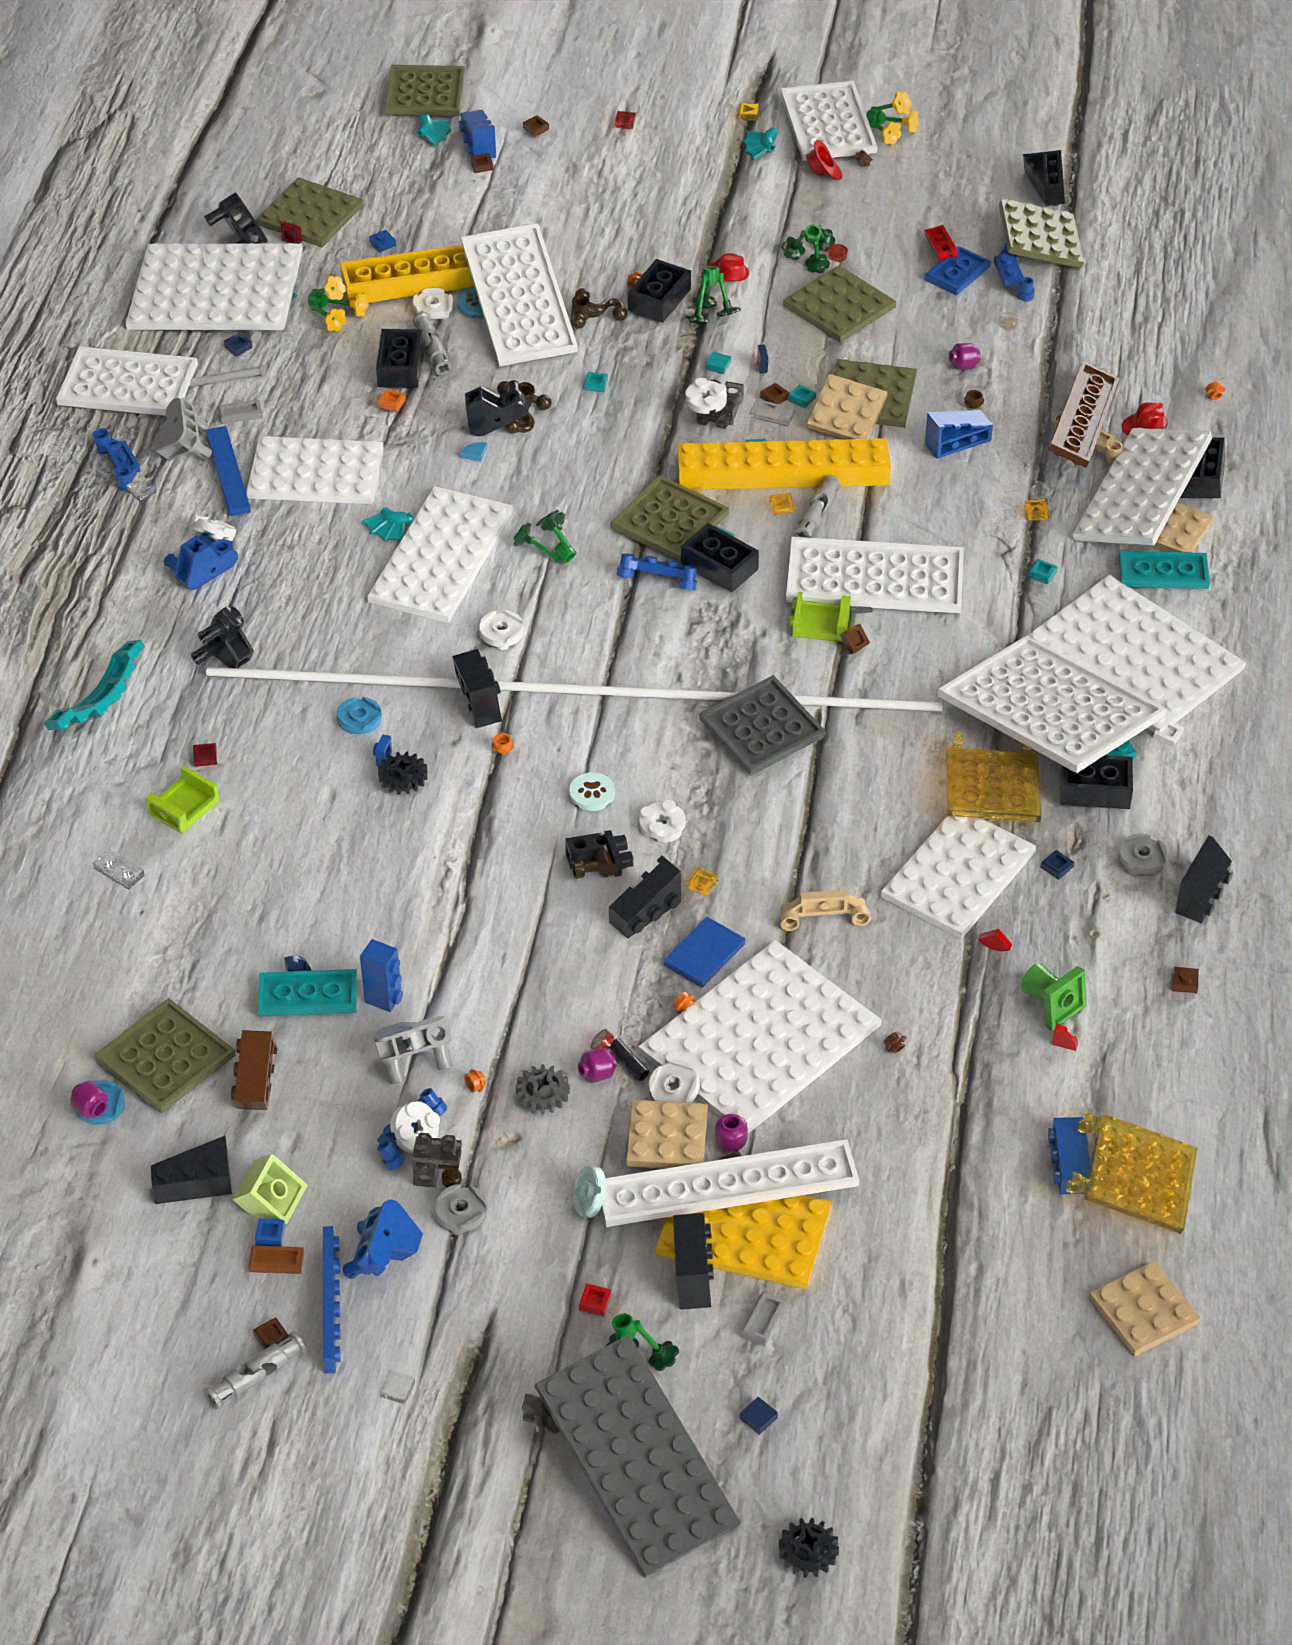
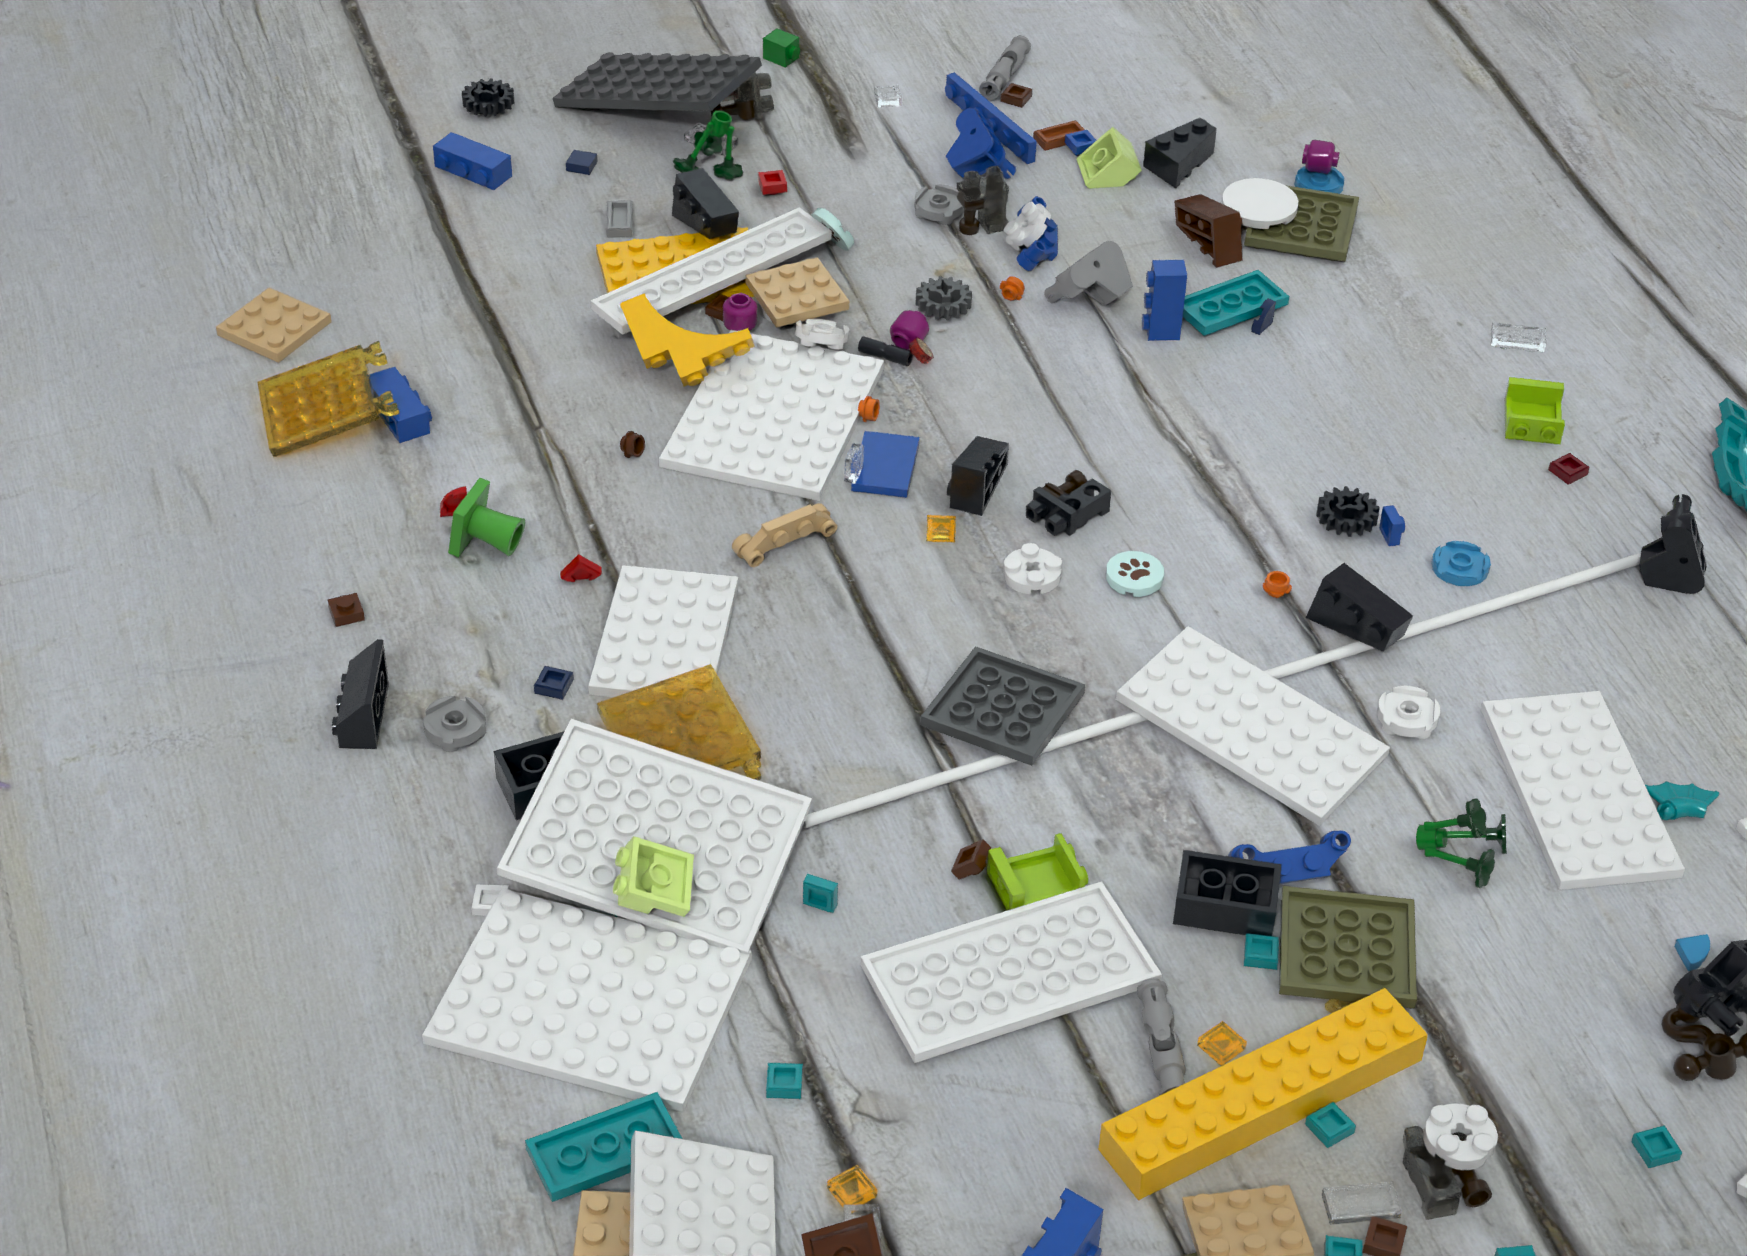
camera: 150 degrees right, 5 degrees down
(191, 1073) = (1261, 202): none -> white tile
(458, 1498) = (781, 47): none -> green brick
(610, 656) = (1253, 725): none -> white plate
(738, 937) = (854, 463): none -> clear tile
(806, 1094) = (690, 351): none -> yellow arch
(871, 1449) = (472, 161): none -> blue brick
(961, 652) = (820, 893): none -> teal tile
(1071, 665) = (653, 877): none -> yellowish green plate

